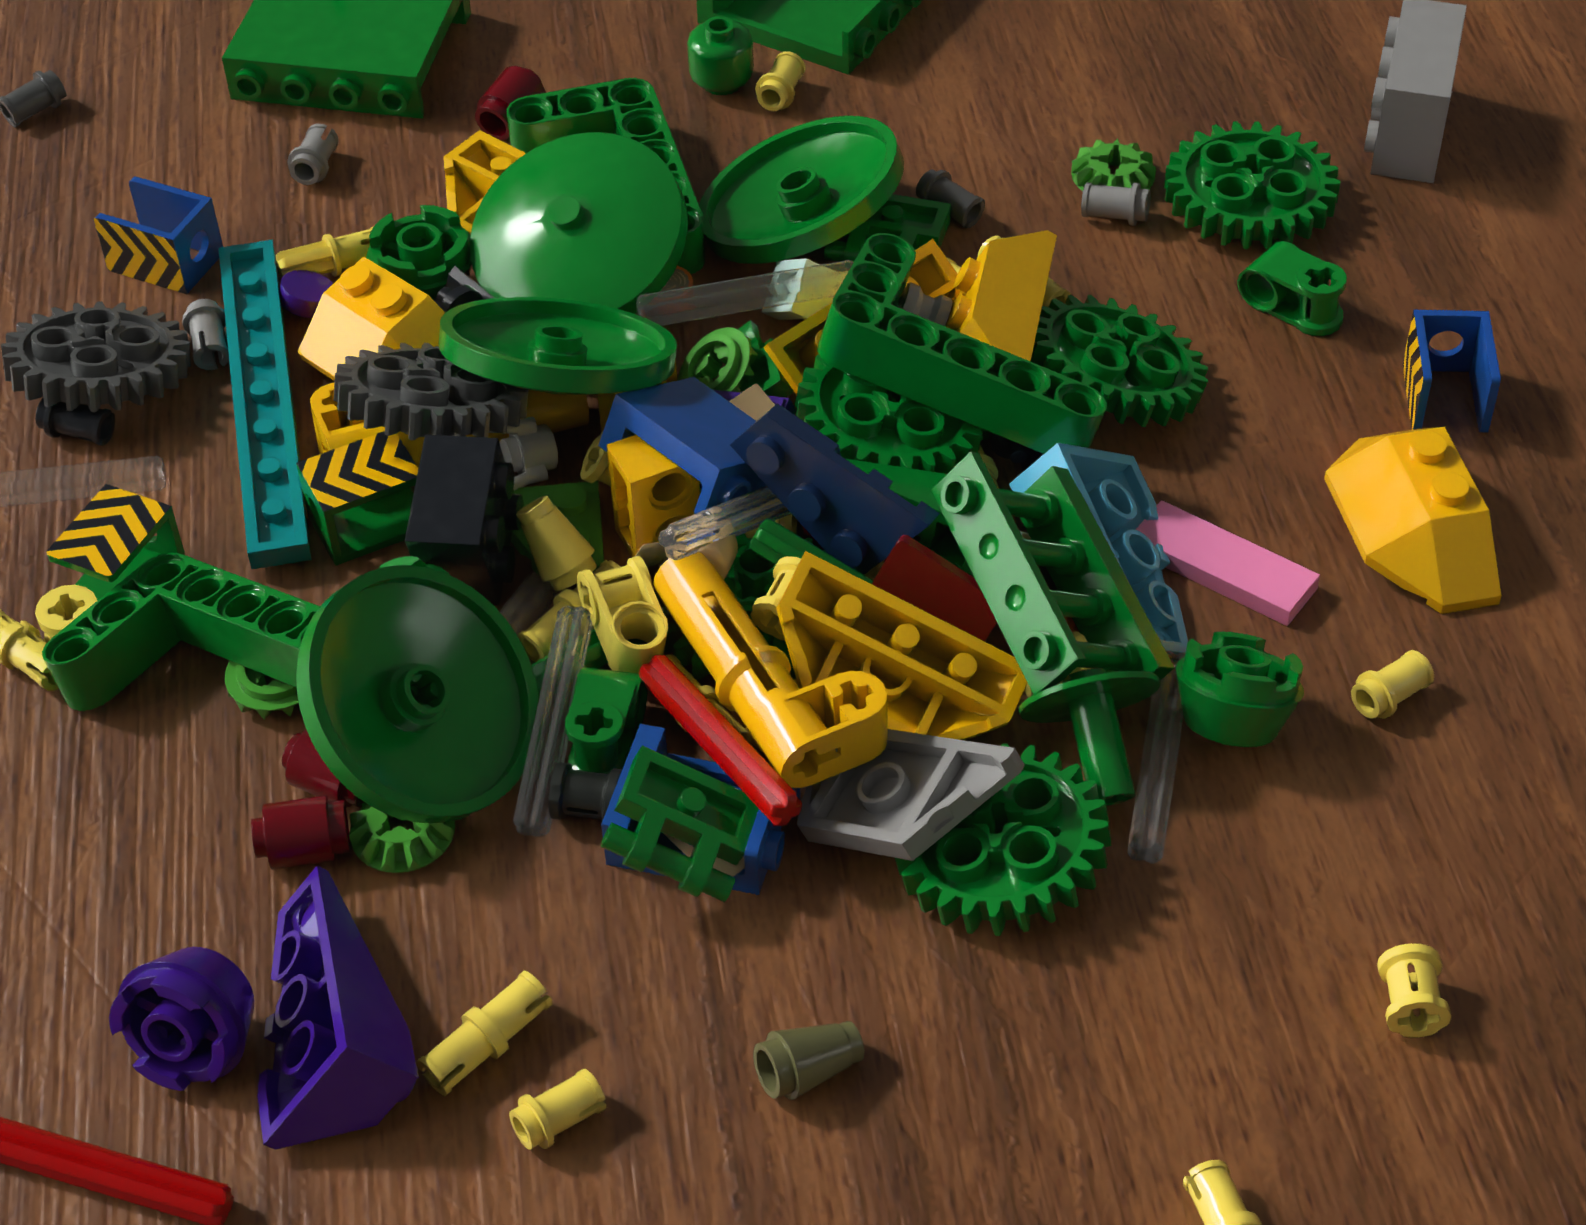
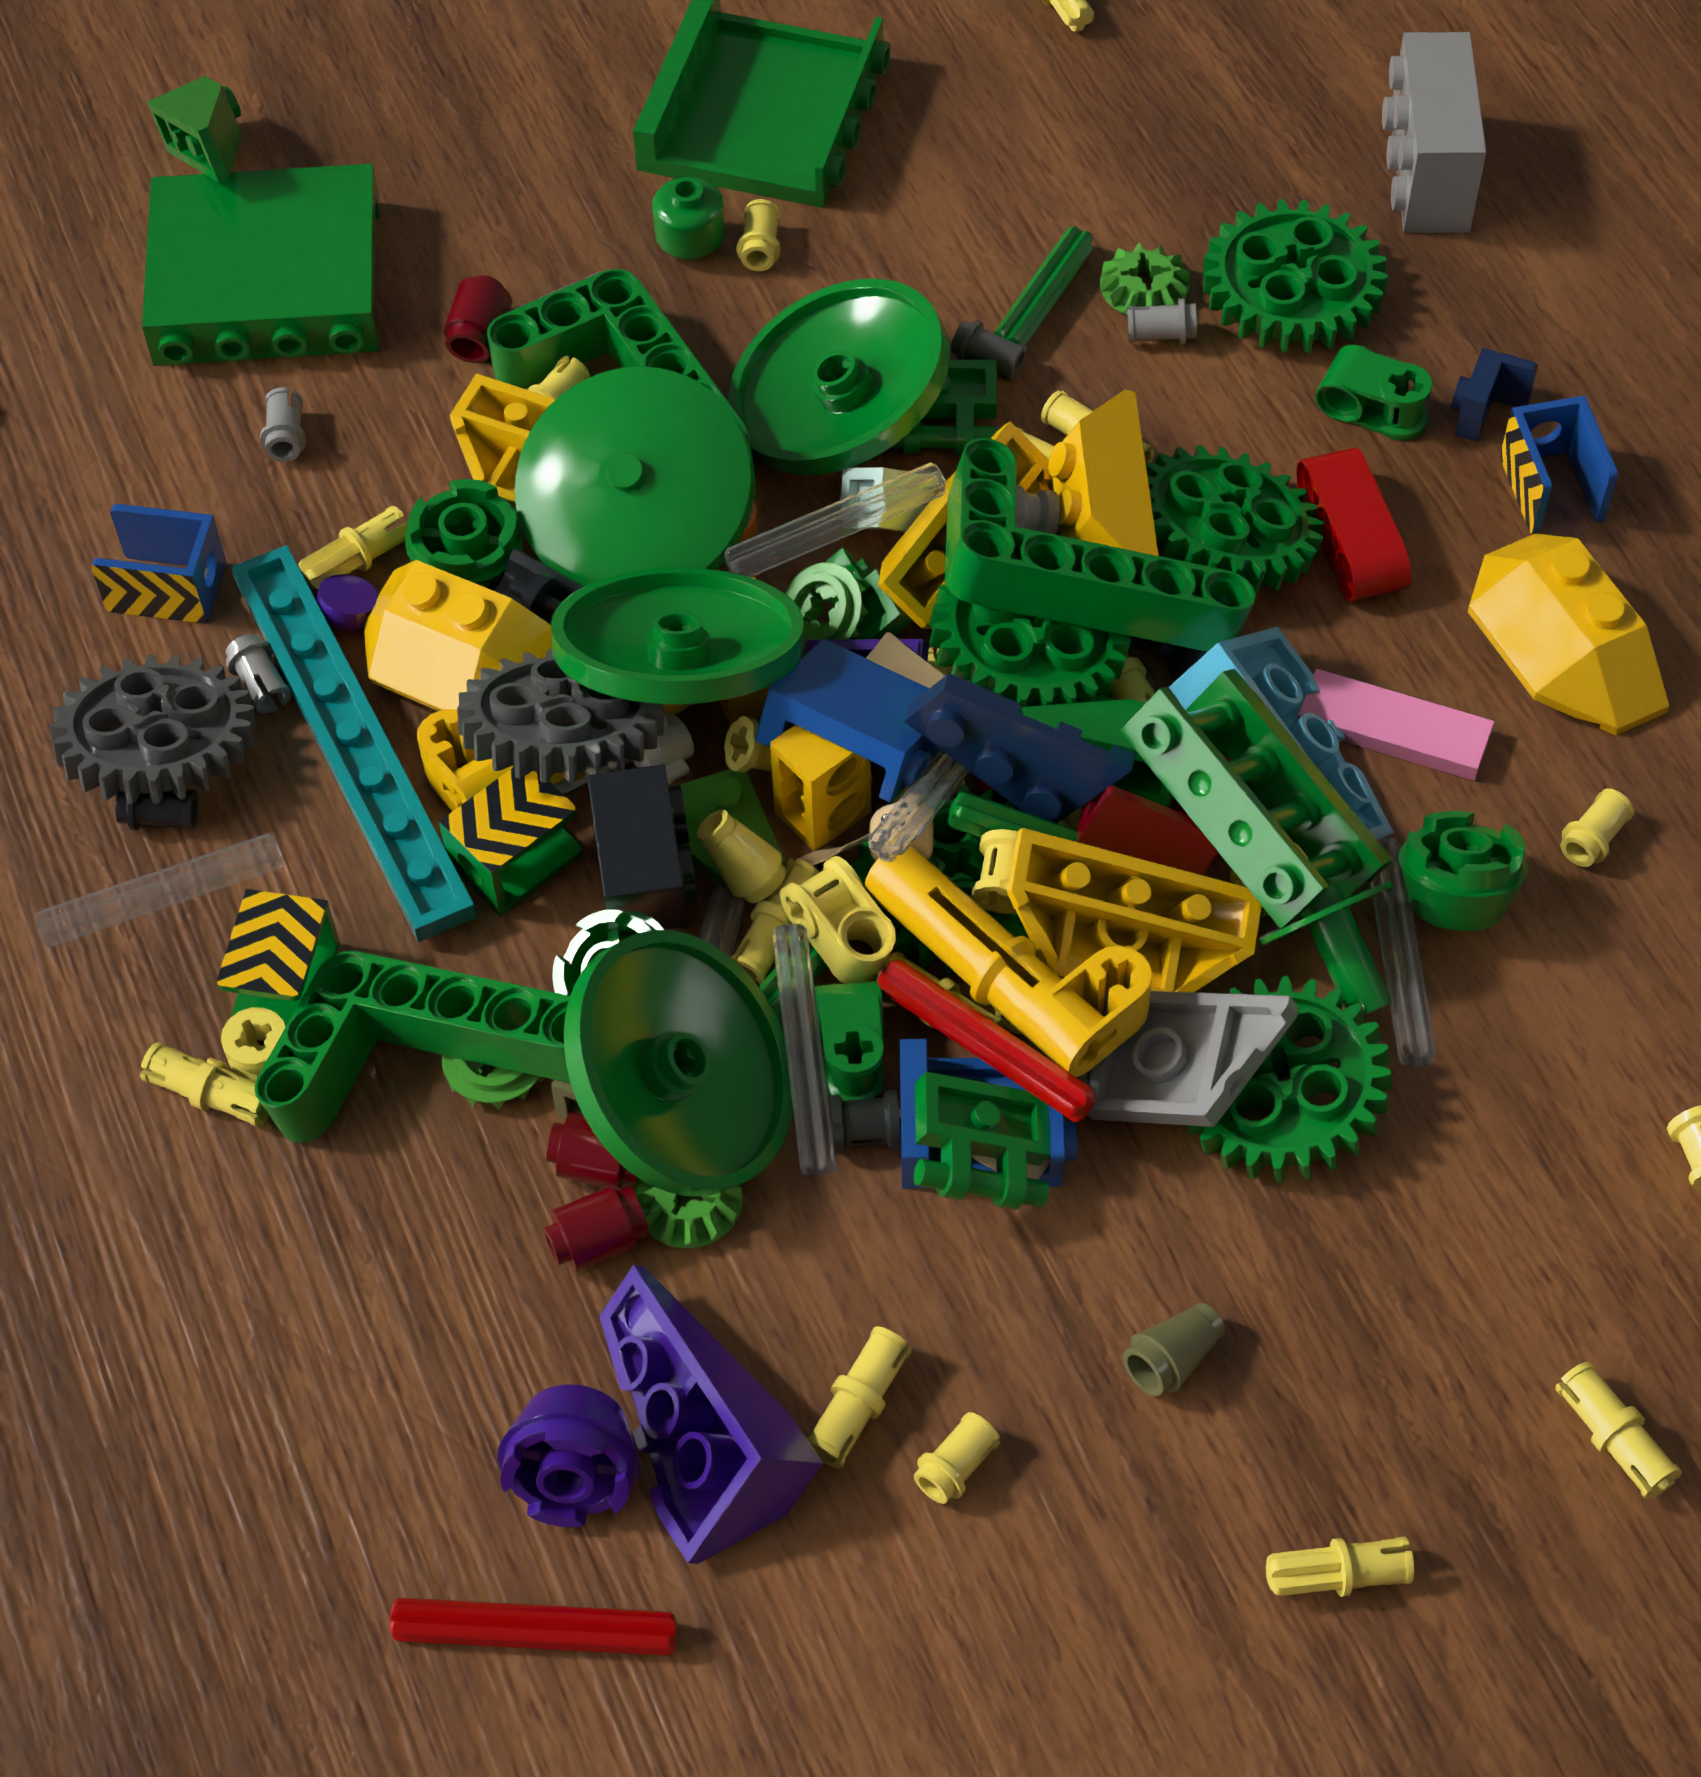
camera: 15 degrees left, 10 degrees up
(1021, 159) = (1046, 286): none -> green axle
(1238, 389) = (1357, 525): none -> red beam
(1393, 304) = (1494, 378): none -> dark blue bracket

